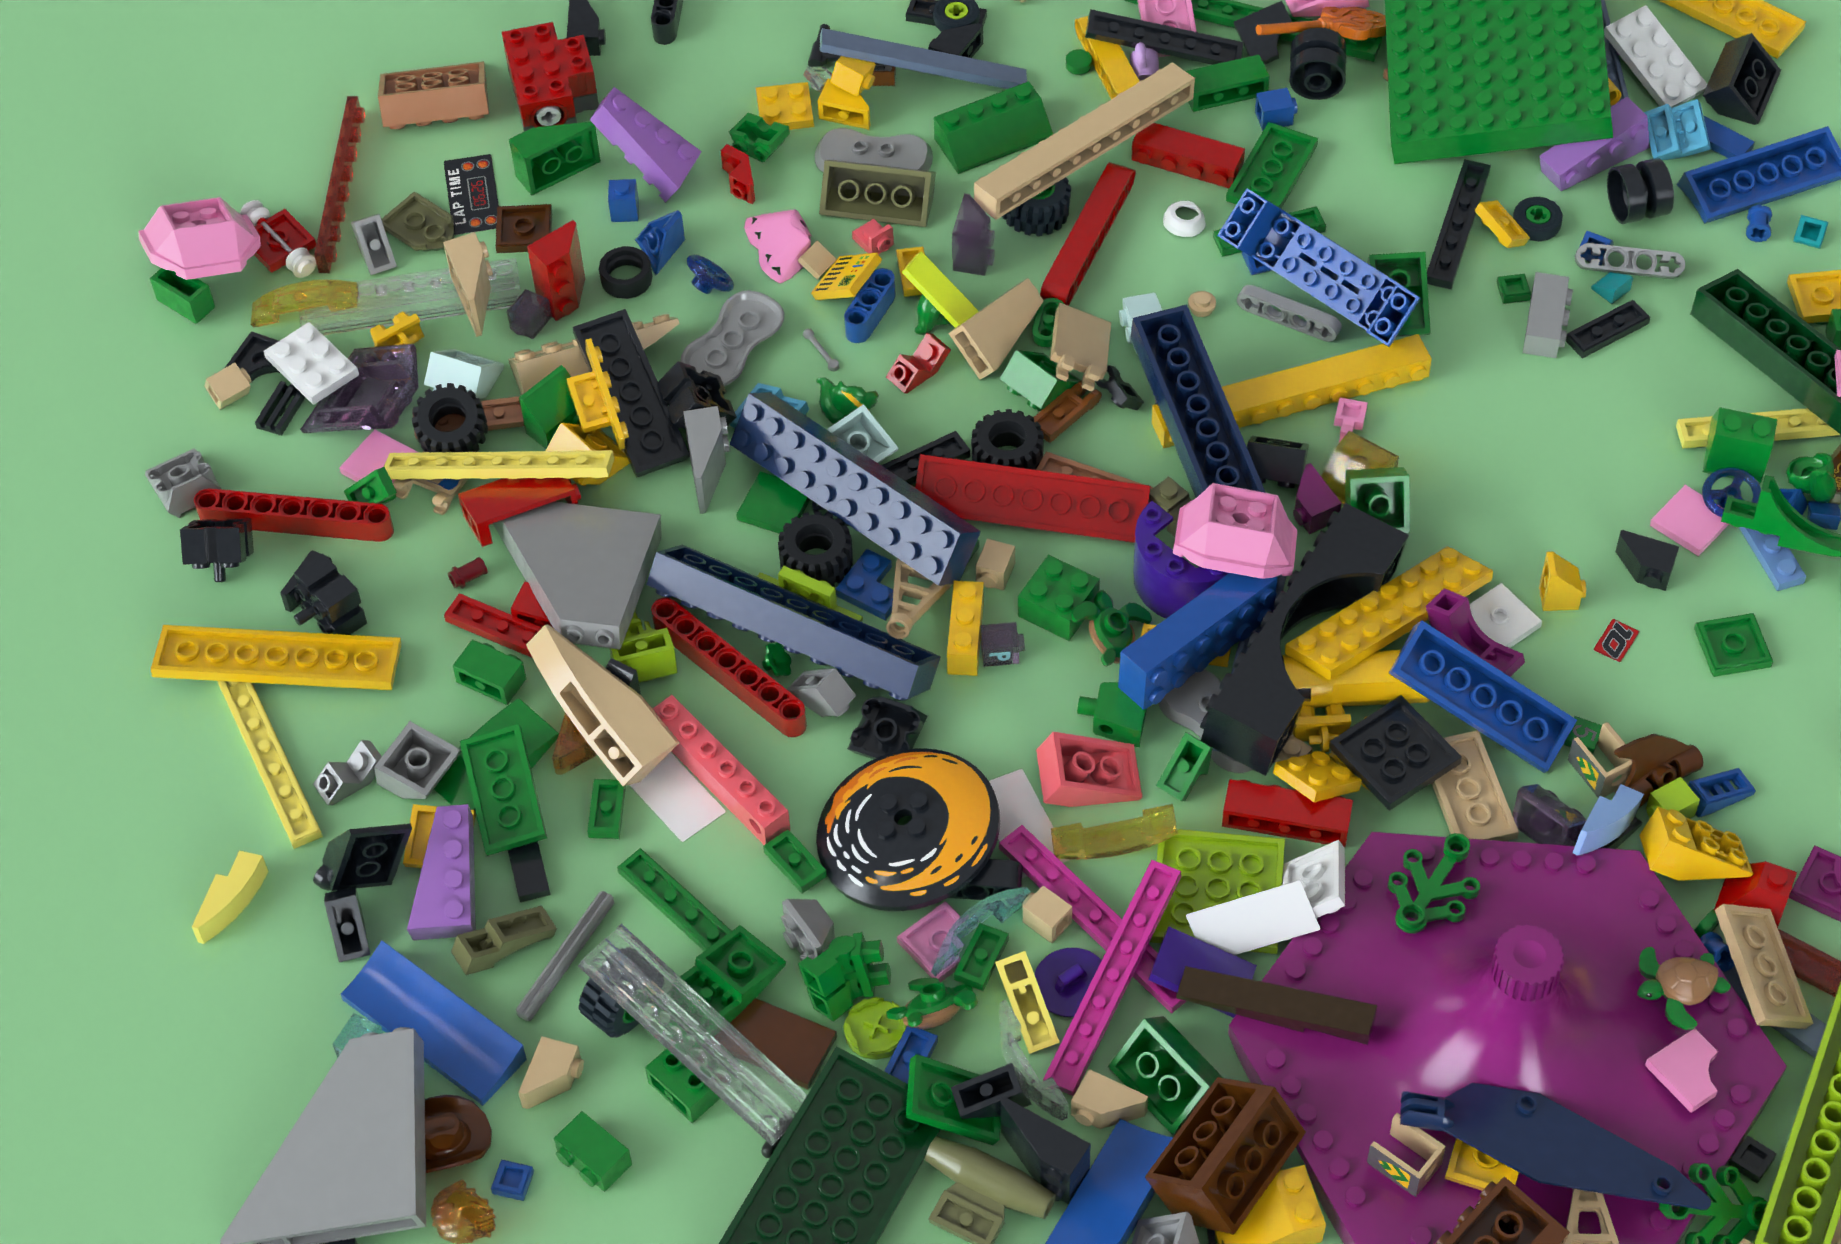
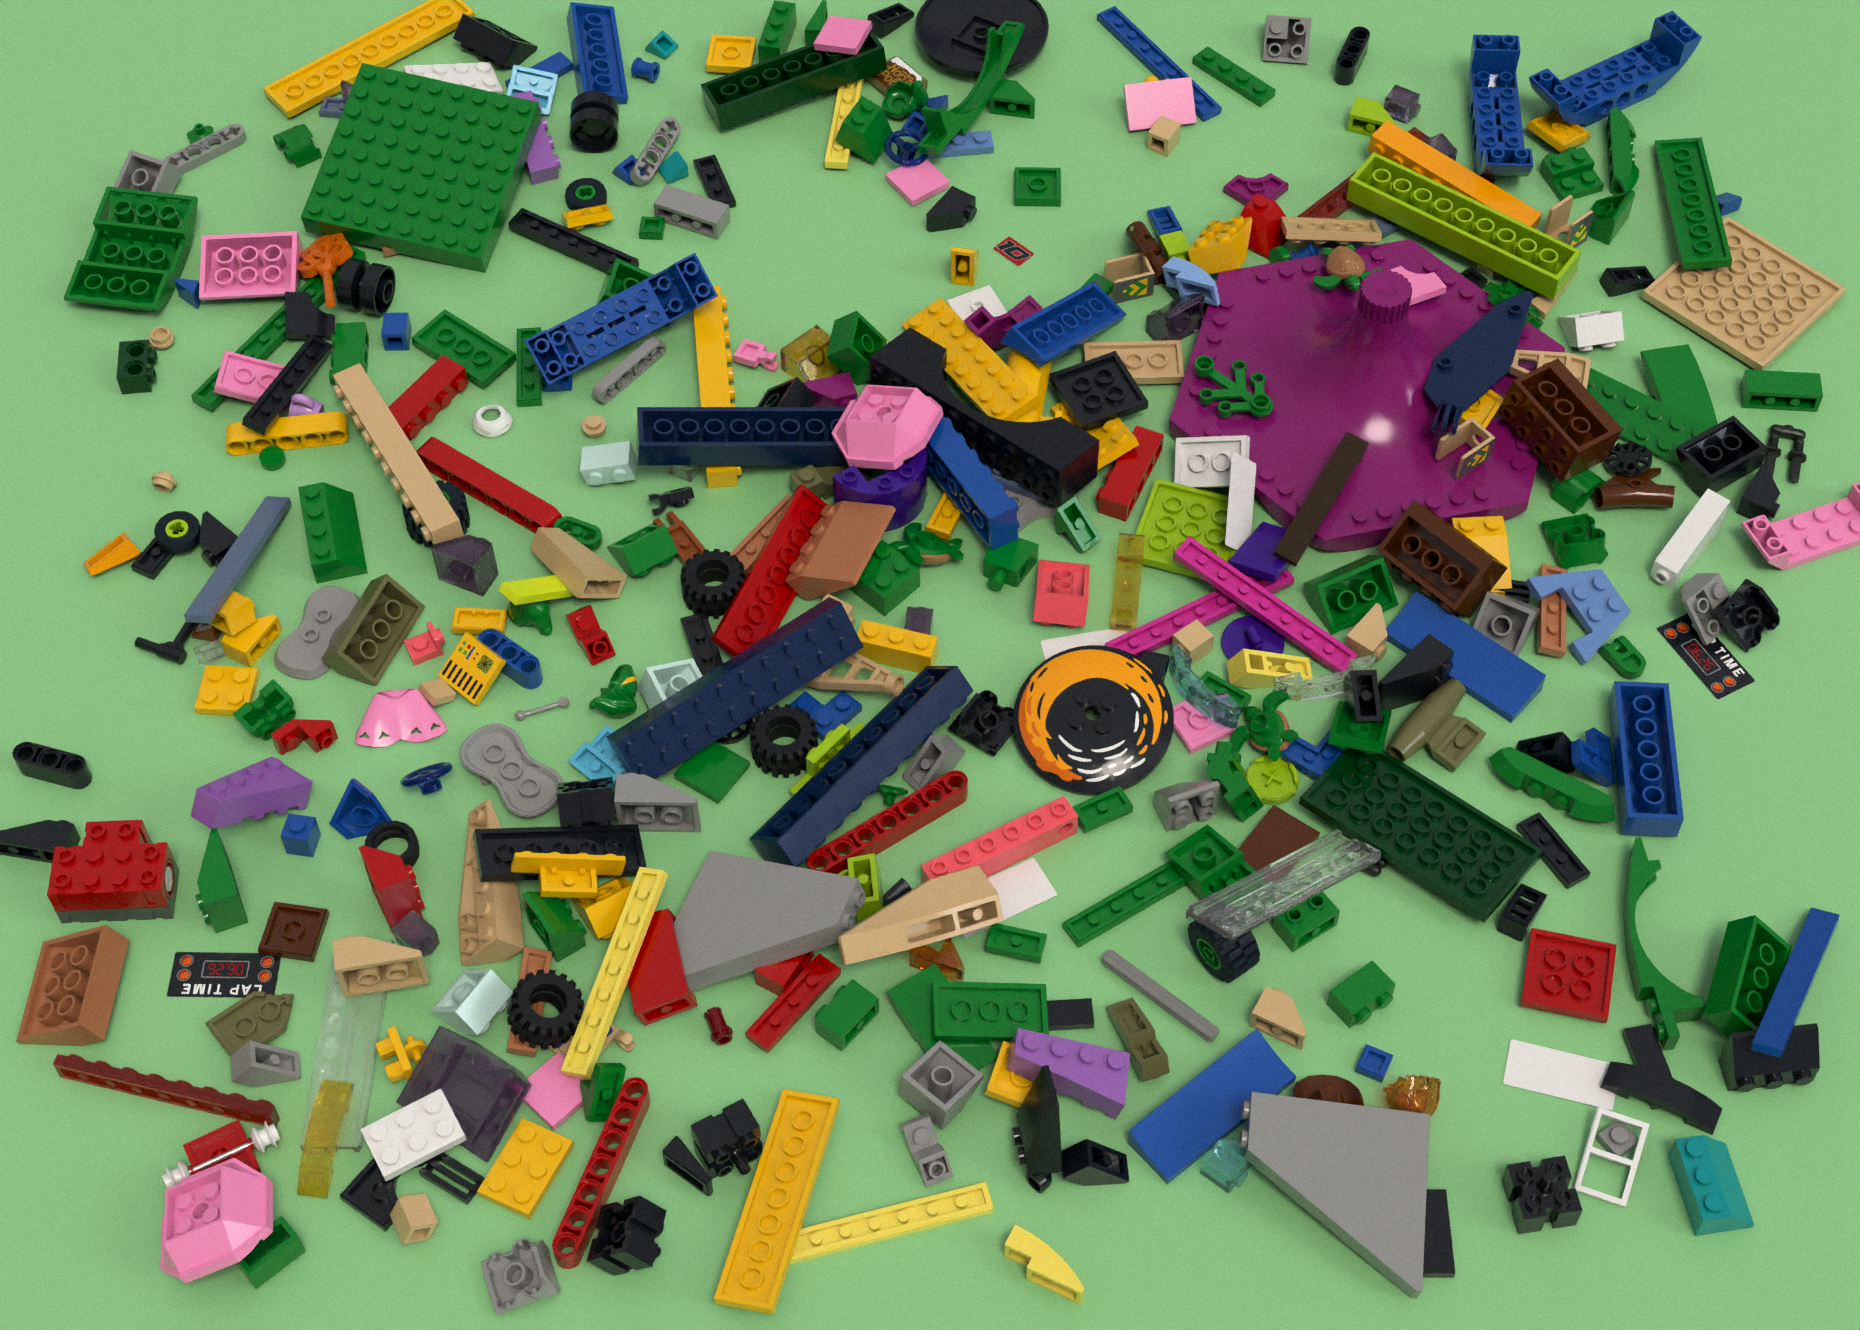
camera: 80 degrees left, 0 degrees up
(296, 460) = (525, 1168): none -> yellow plate
(1075, 538) = (838, 548): none -> nougat slope
(1080, 344) = (623, 509): tan tile -> none

